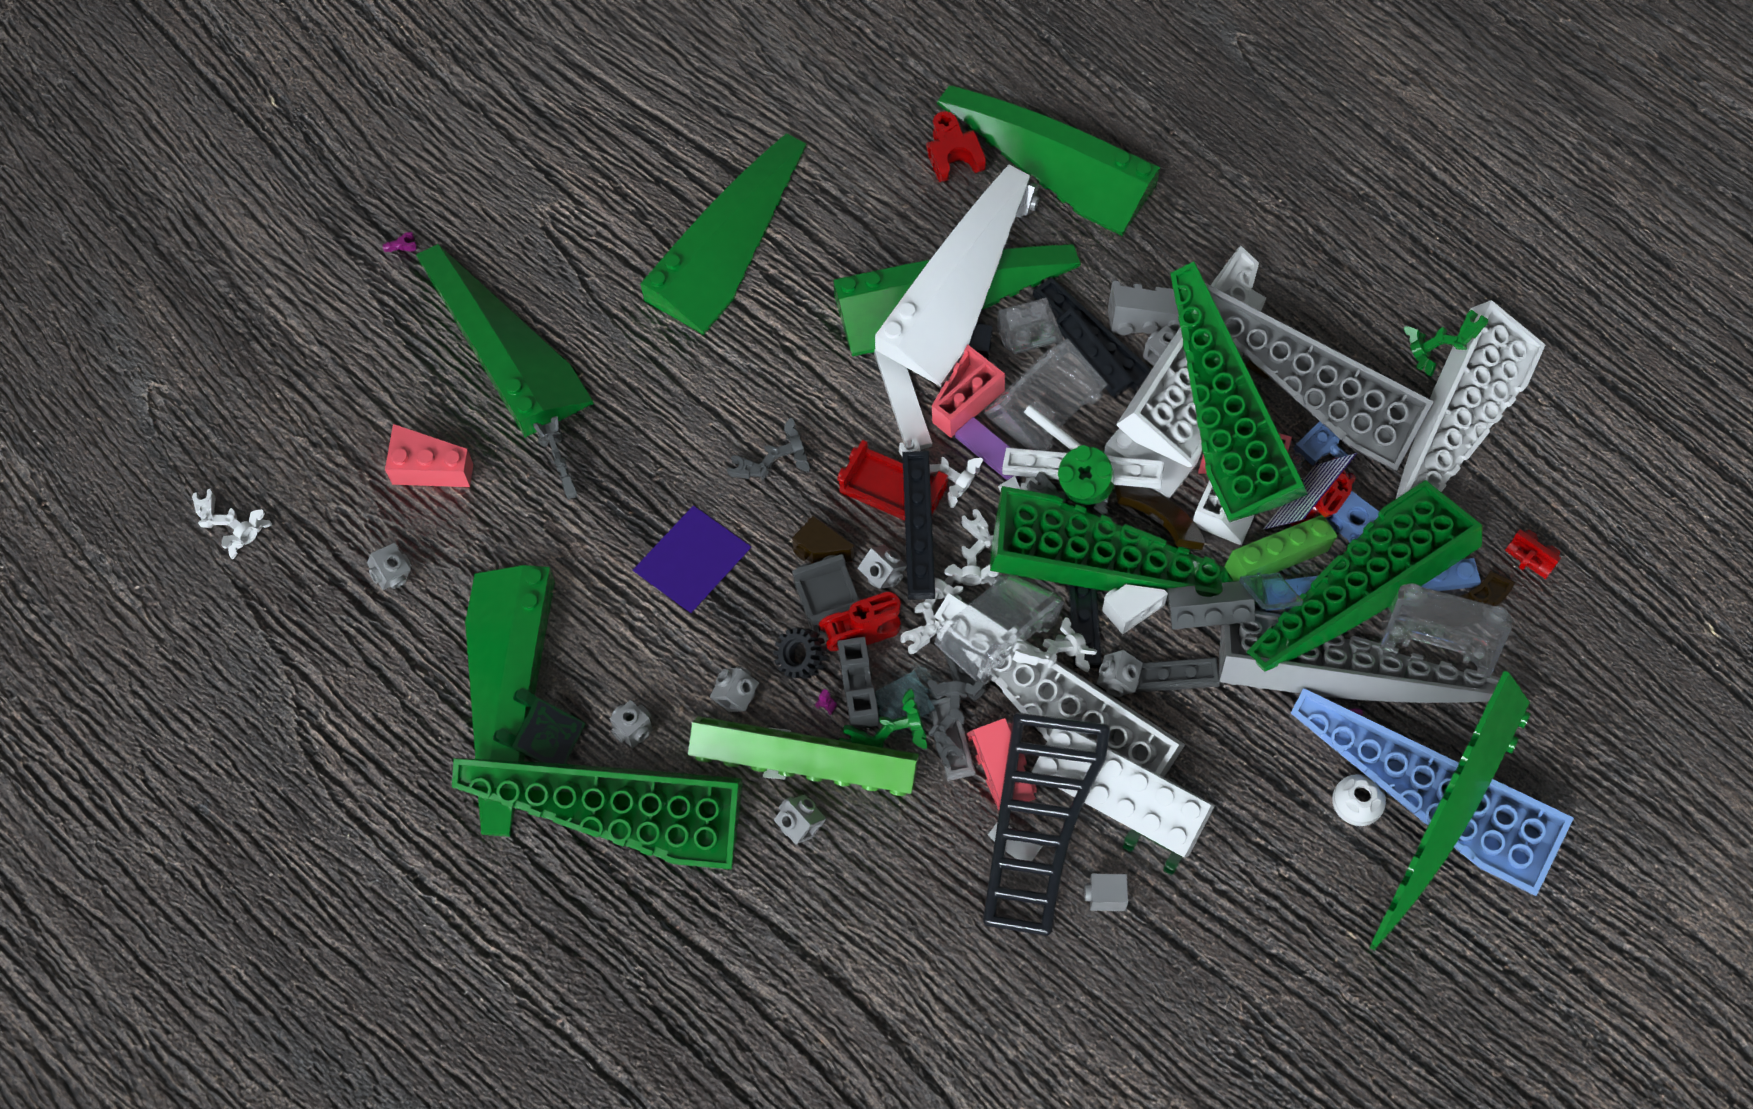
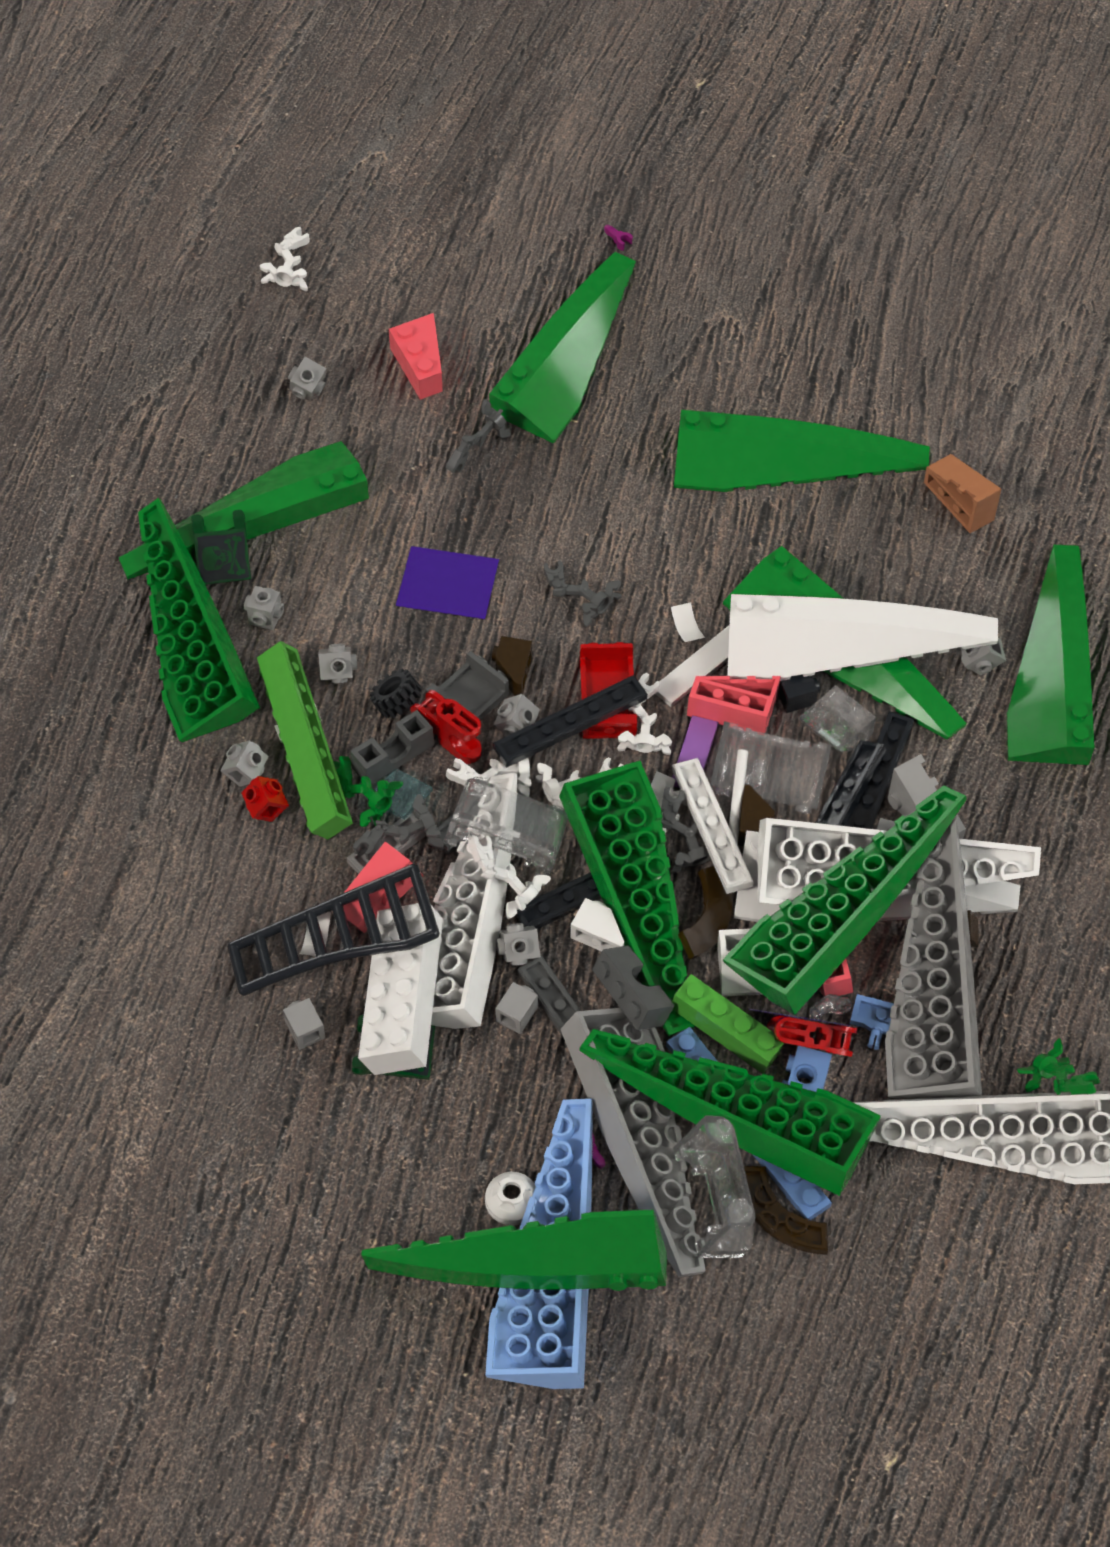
camera: 60 degrees right, 5 degrees down
(826, 702) = (364, 731): magenta piece -> none
(848, 818) = (264, 798): none -> red brick
(854, 130) = (963, 492): none -> nougat wedge
(855, 394) = (685, 622): none -> white sticker
(952, 146) = (1005, 575): red piece -> none
(1086, 490) = (693, 822): green brick -> none
(1089, 431) = (753, 810): none -> dark brown slope
(1179, 706) = (517, 1007): none -> light grey brick
(1271, 591) = (669, 1024): clear light blue piece -> none
(1533, 554) = (864, 1252): red hips -> none

